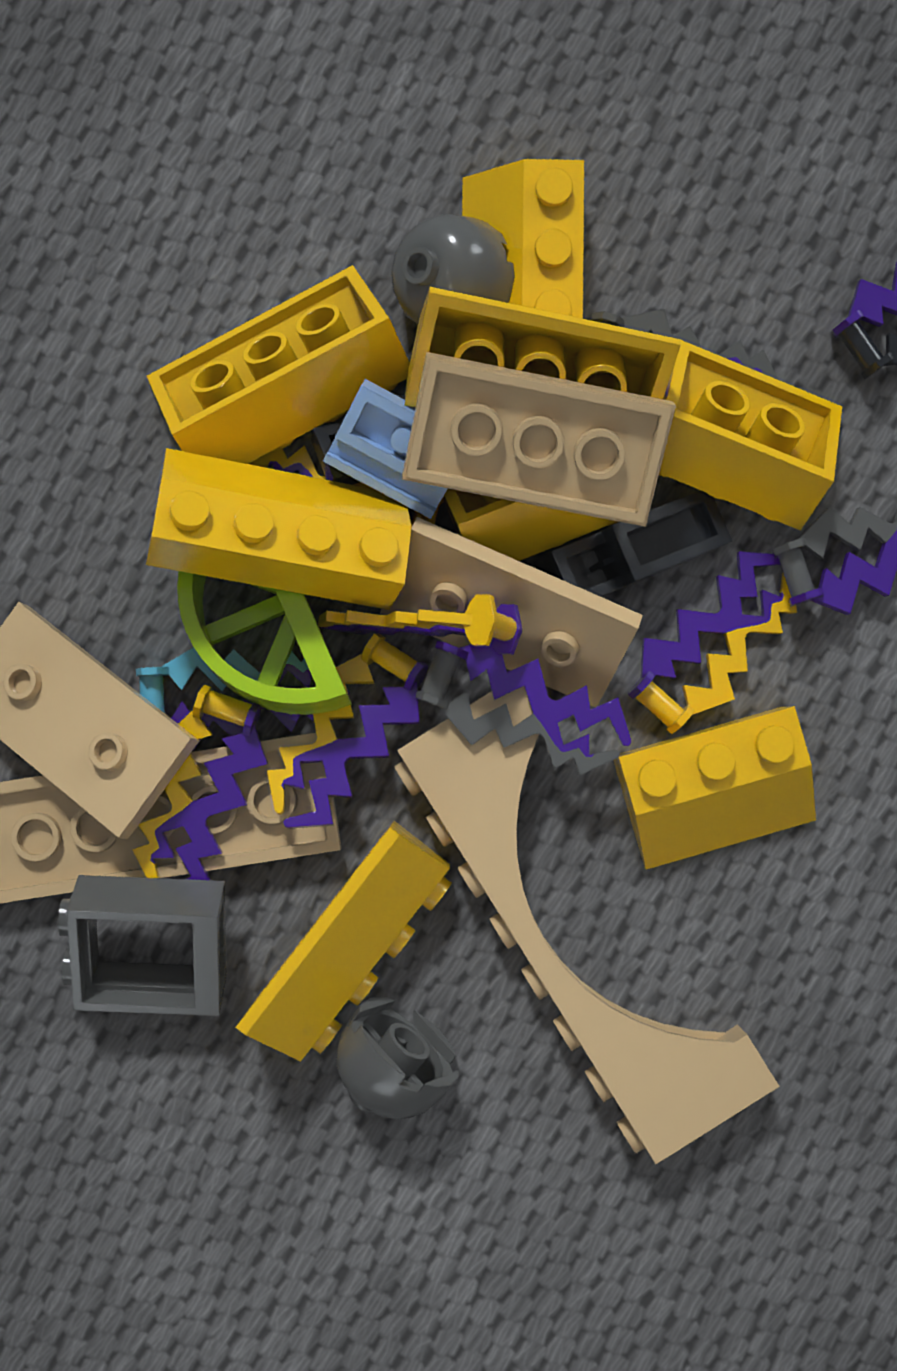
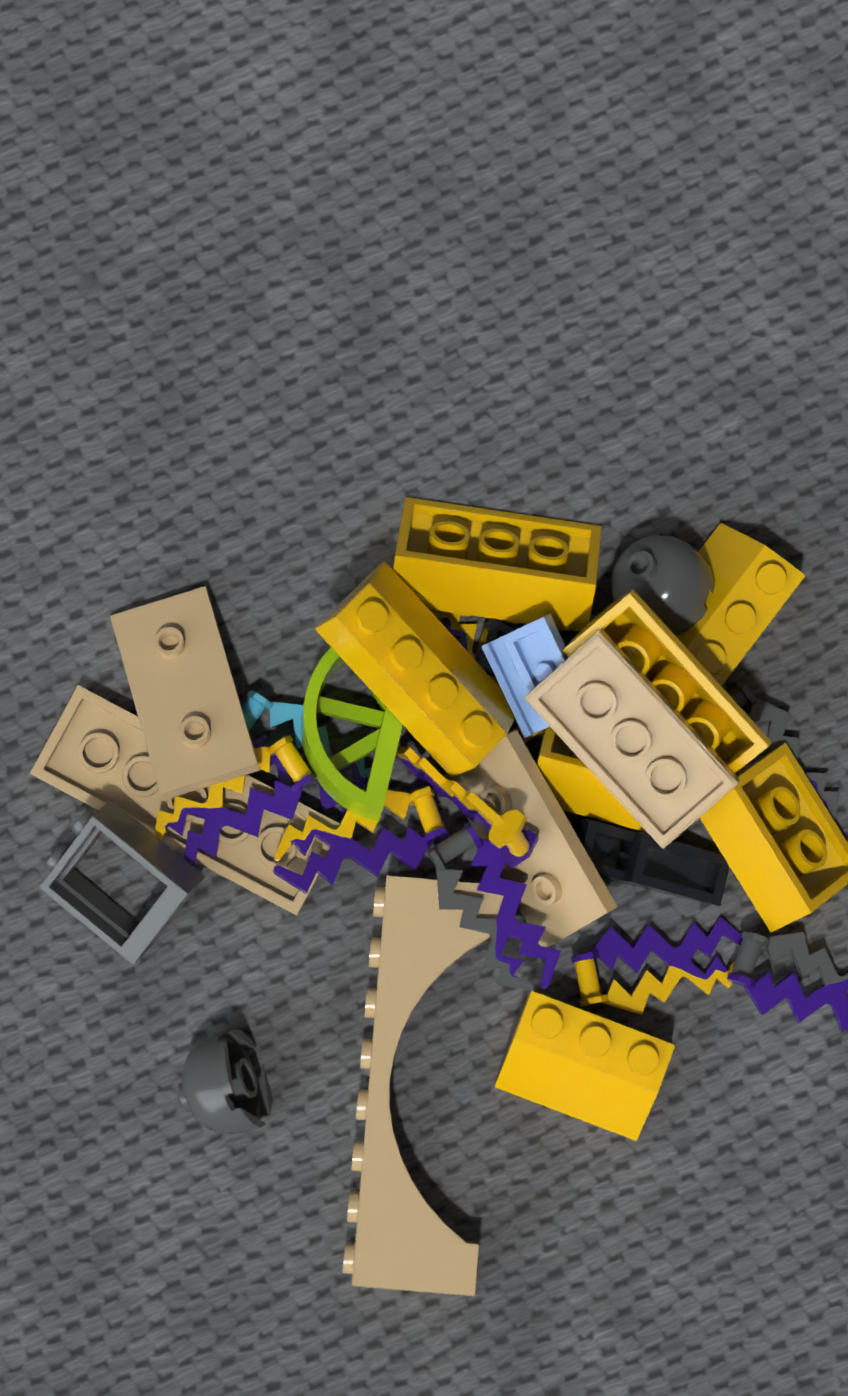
camera: 30 degrees right, 5 degrees down
(345, 945) = (254, 980): yellow slope -> none

